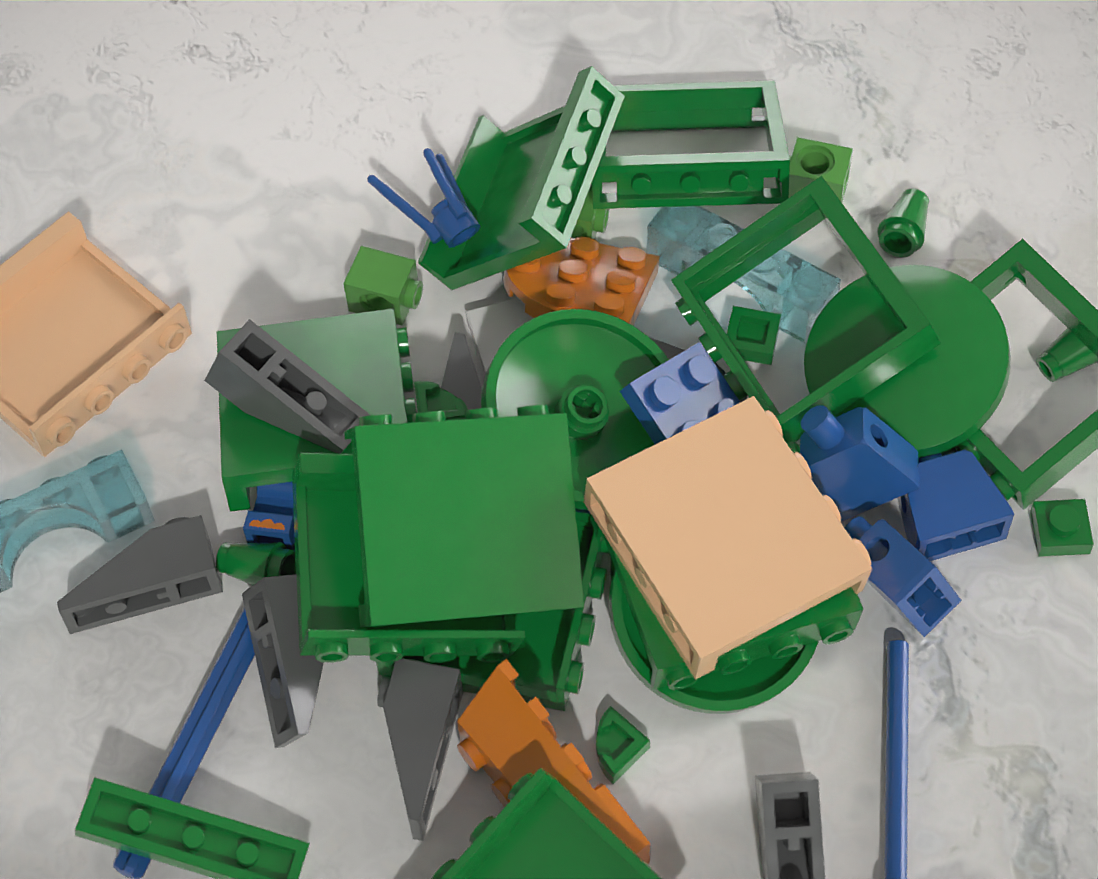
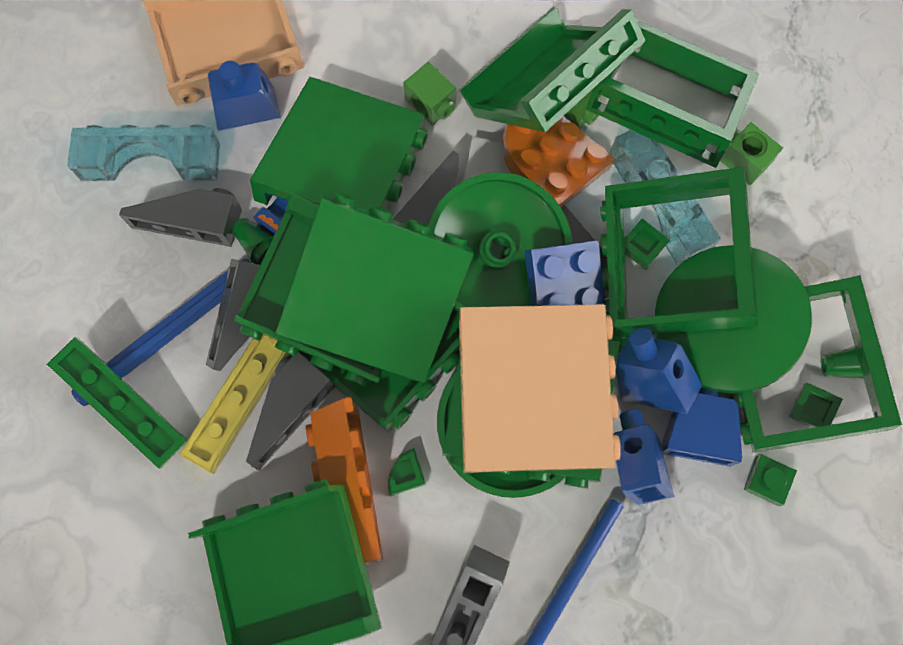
camera: 25 degrees right, 15 degrees up
(134, 398) = (241, 95): none -> blue torso
(282, 389) = (317, 140): dark grey slope -> none
(343, 768) = (233, 404): none -> light yellow tile
(433, 398) = (412, 198): green tile -> none
(451, 216) = (495, 69): blue plant -> none
(905, 224) = (789, 216): green cone -> none
(1059, 415) = (815, 406): none -> green plate

